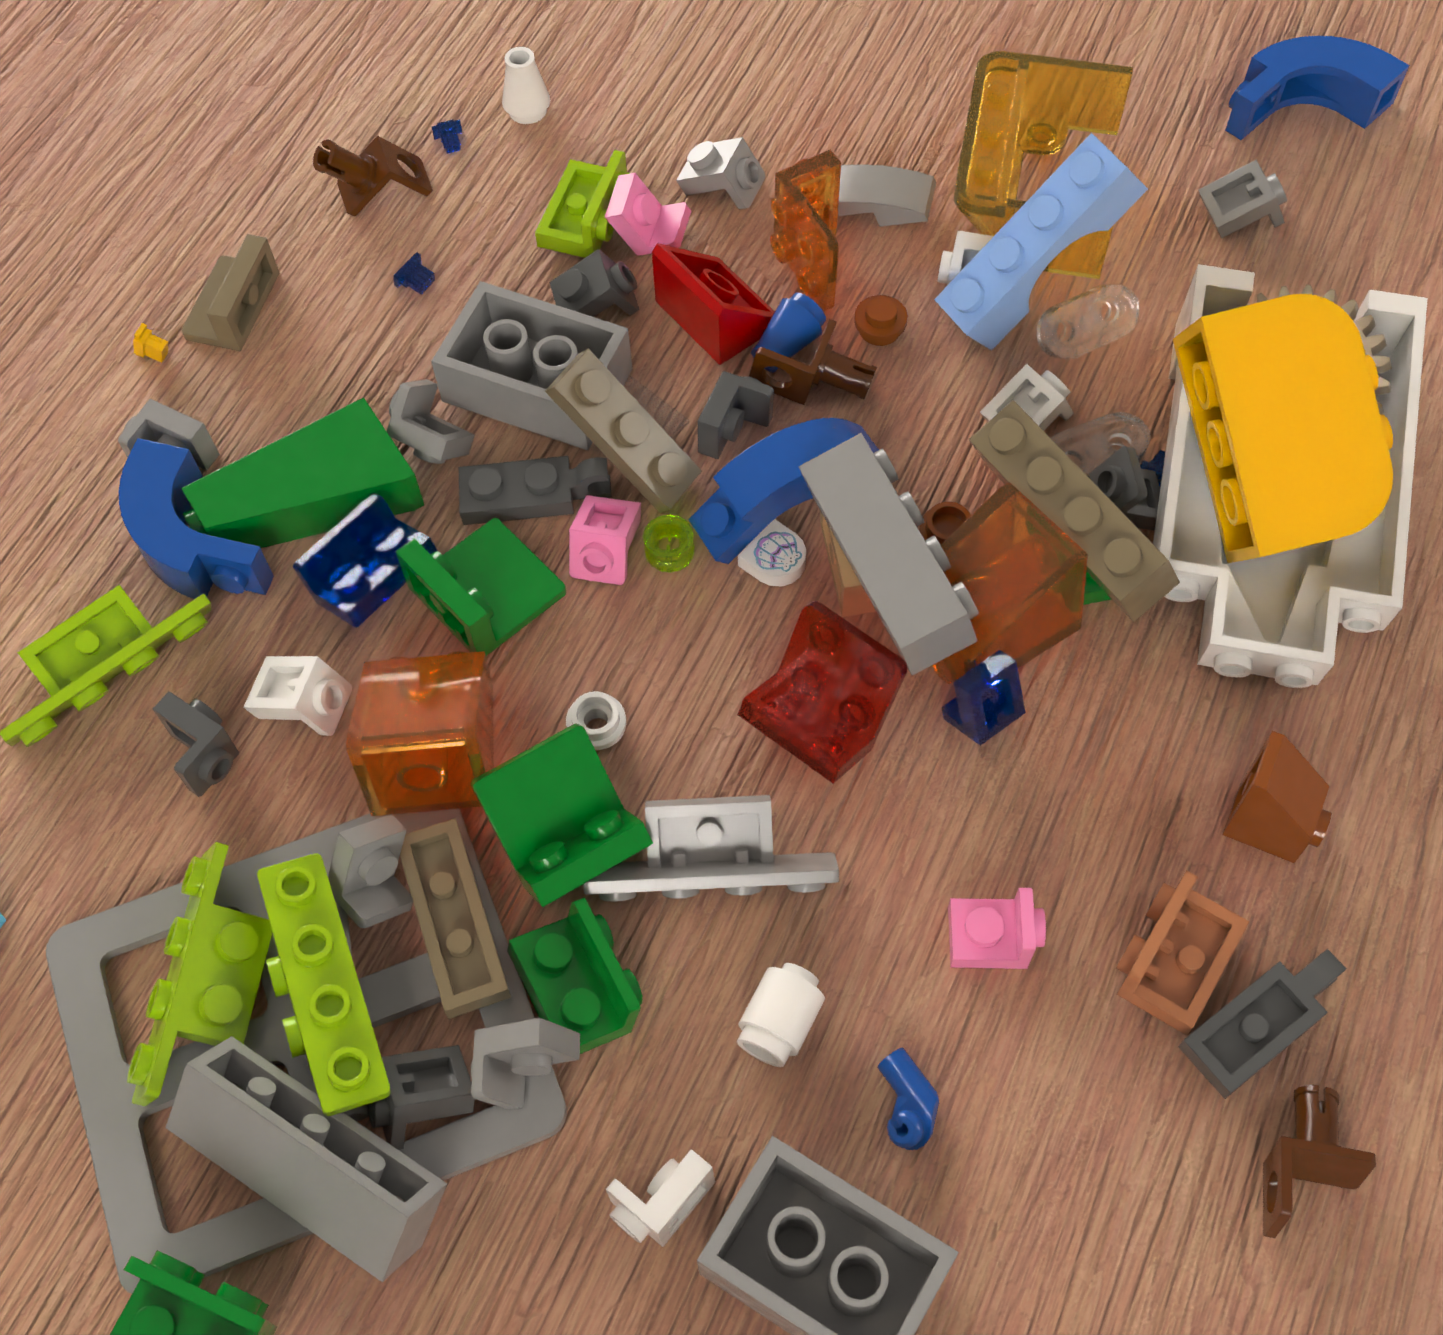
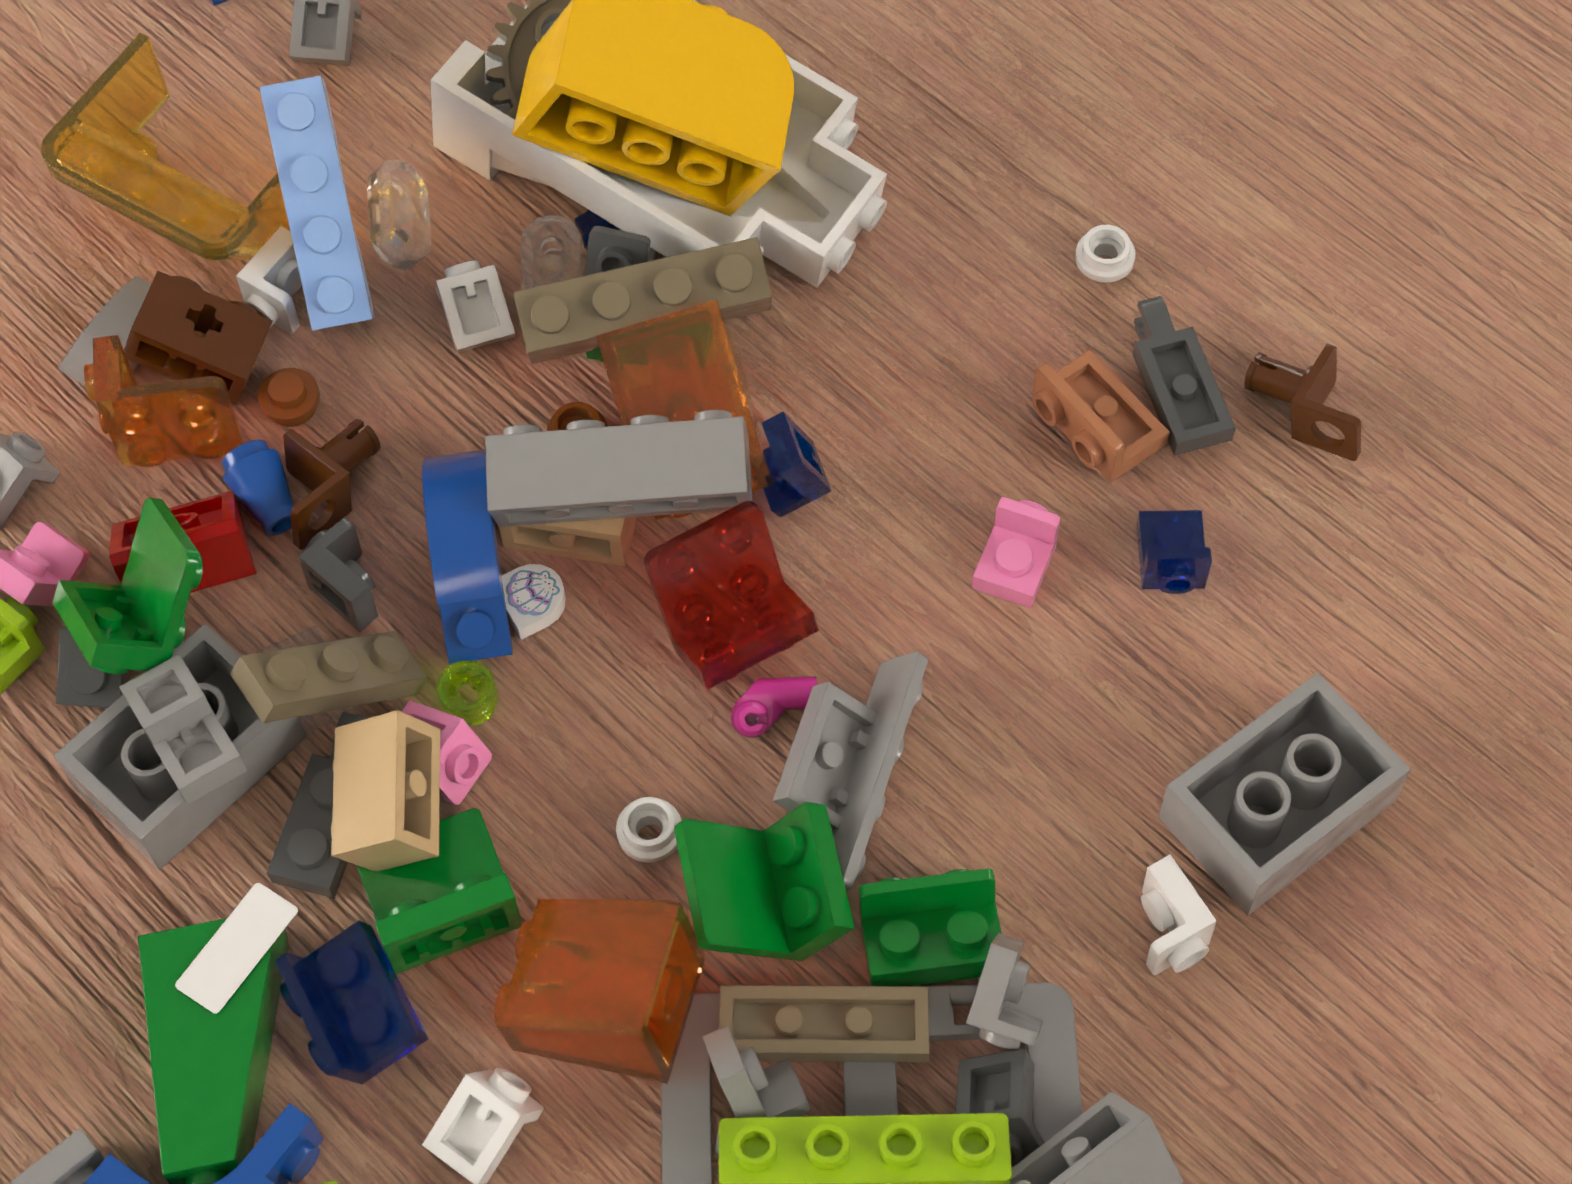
camera: 70 degrees left, 0 degrees up
(373, 462) = (236, 948): none -> white sticker
(413, 425) = (203, 894): light grey bracket -> none
(530, 344) = (183, 729): none -> light grey slope
(535, 506) = (386, 791): none -> tan brick
(605, 265) = (144, 616): none -> green bracket
(752, 770) = (767, 701): none -> dark pink arm
(780, 1014) = (1034, 758): white brick -> none
(893, 200) = (166, 339): none -> reddish brown brick
(915, 1103) = (1151, 679): blue arm -> none
(1066, 1077) = (1172, 551): none -> clear blue bracket
(1279, 802) = (990, 280): dark orange slope -> none
(1386, 894) = (1105, 241): none -> white plate

